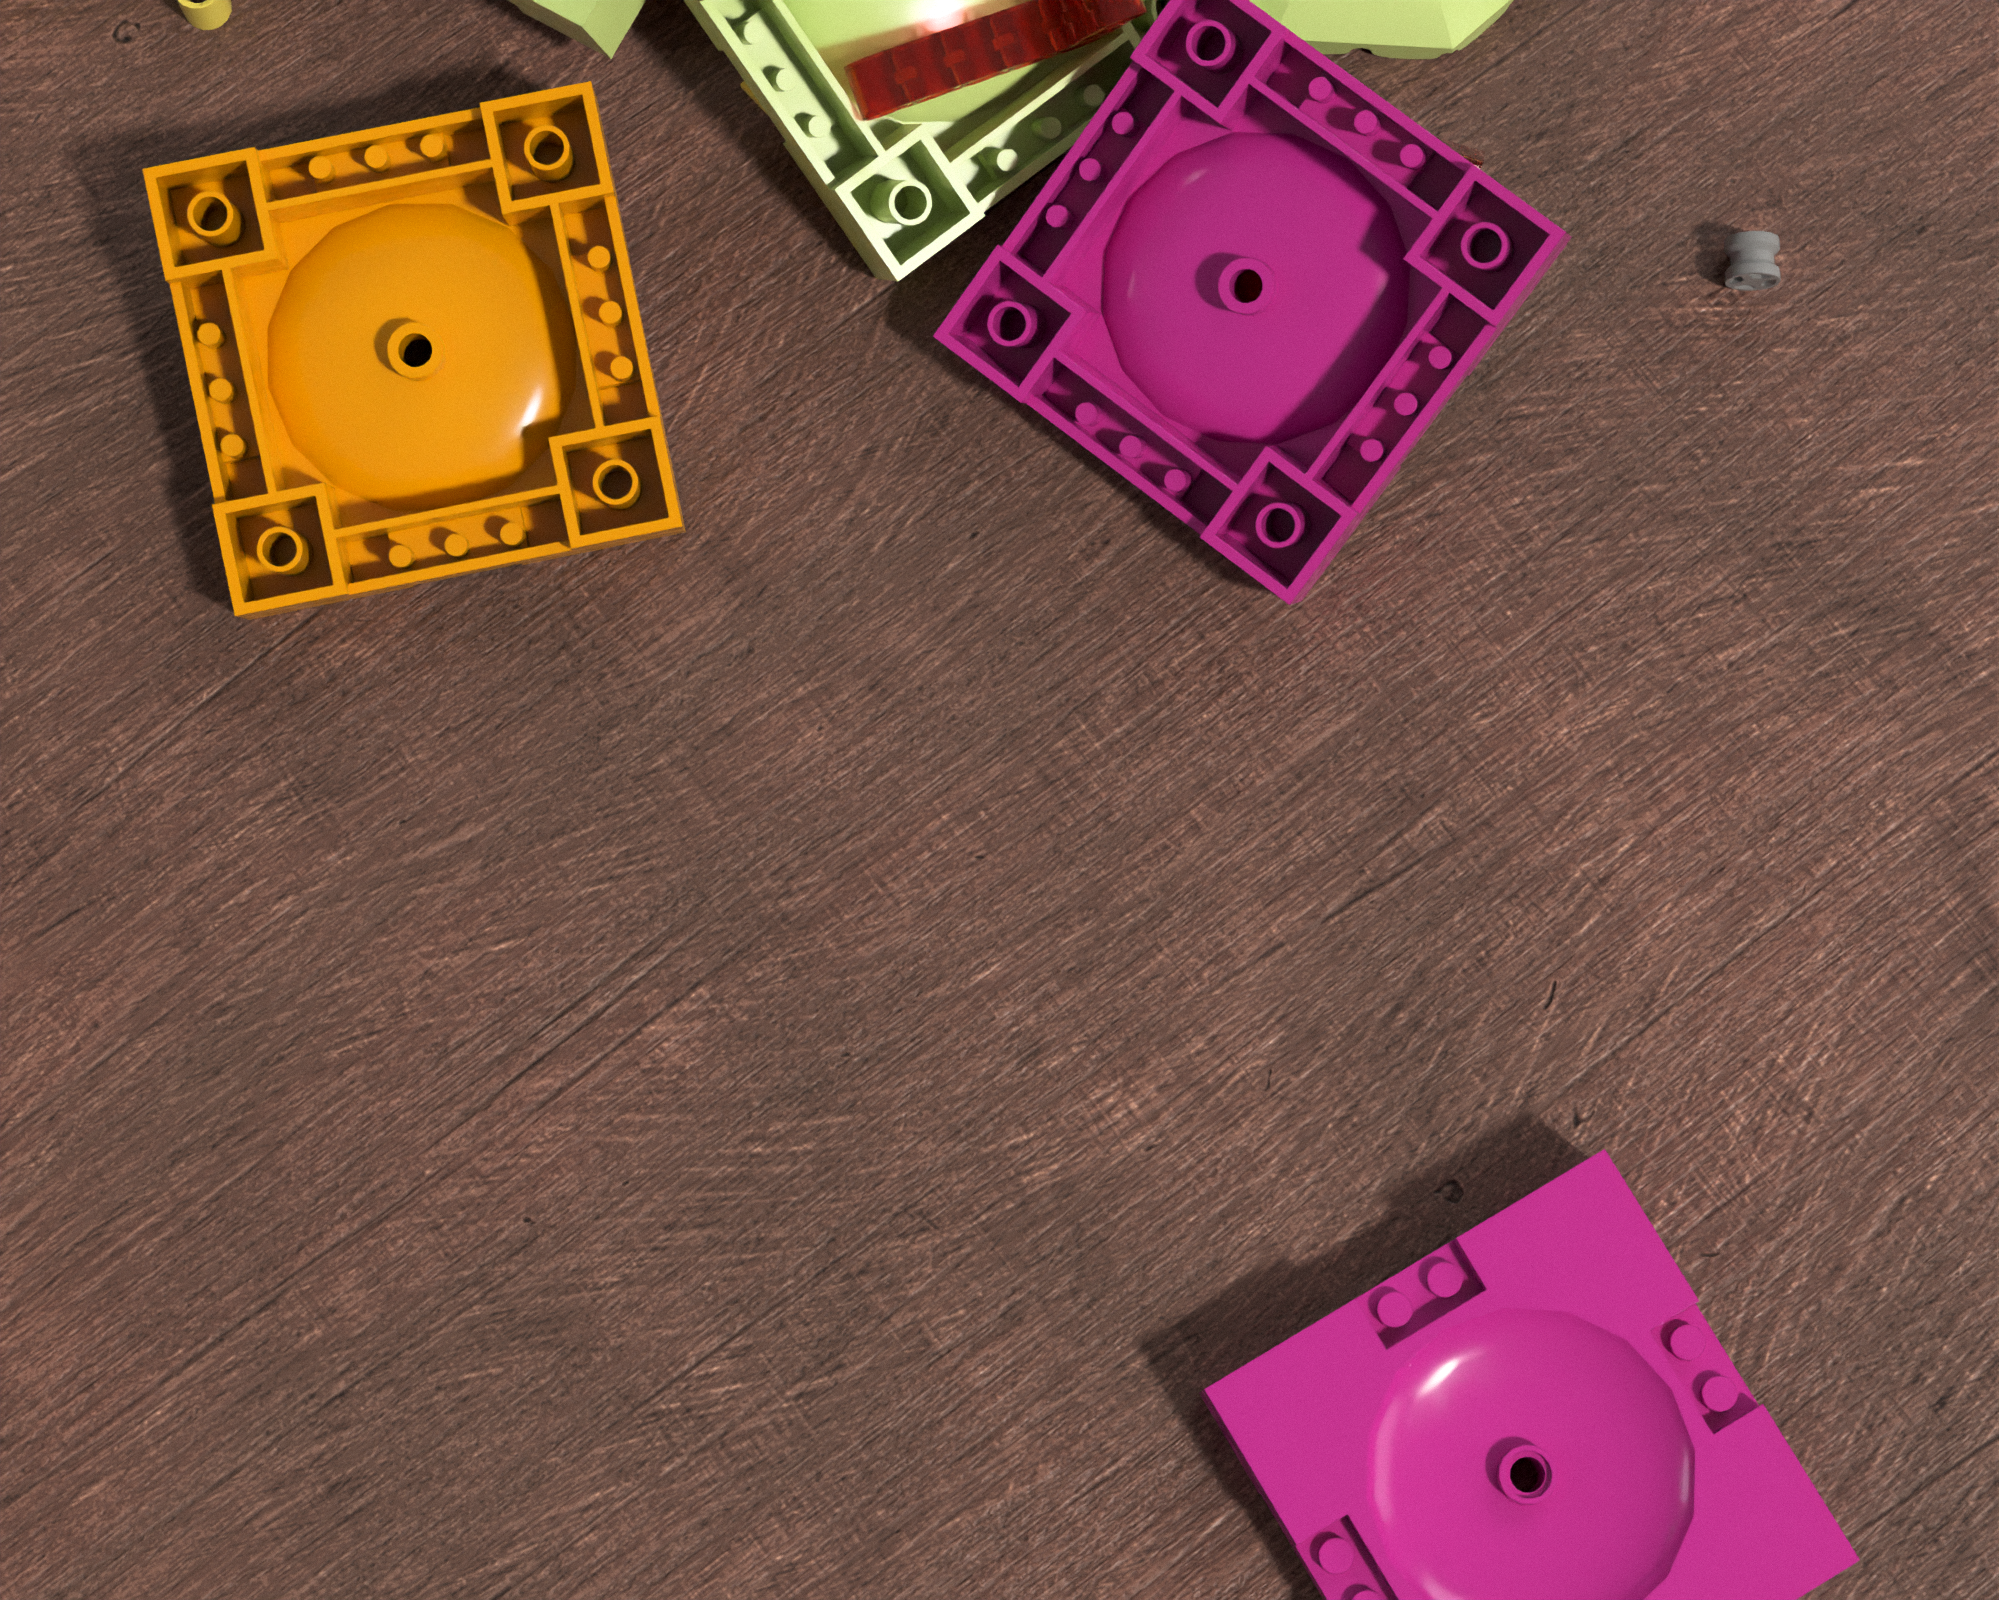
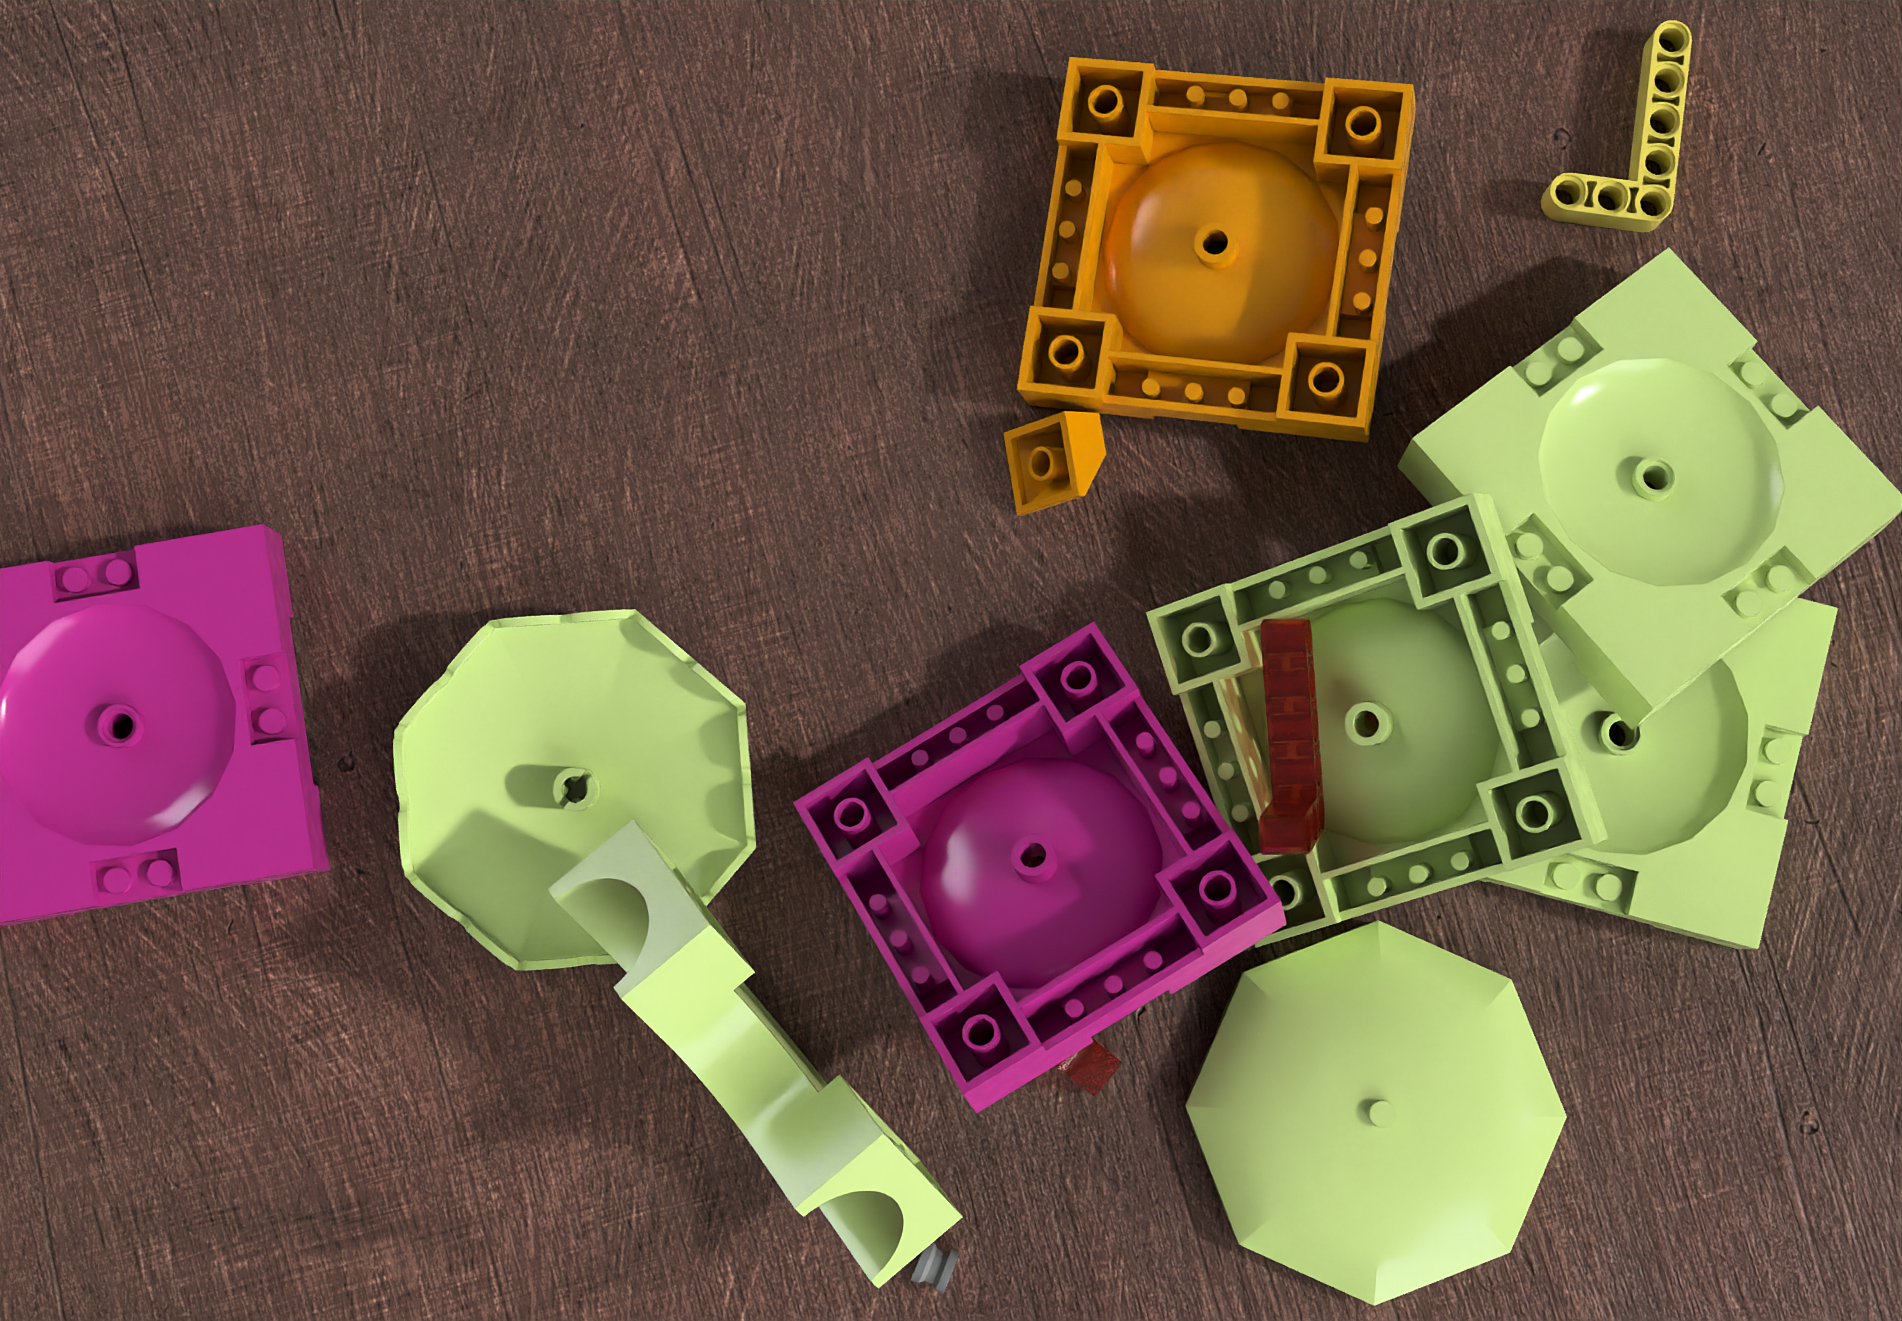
camera: 115 degrees right, 5 degrees up
(749, 467) = (1054, 459): none -> light orange slope
(1376, 876) = (546, 750): none -> yellowish green piece
(1572, 590) = (692, 993): none -> yellowish green piece

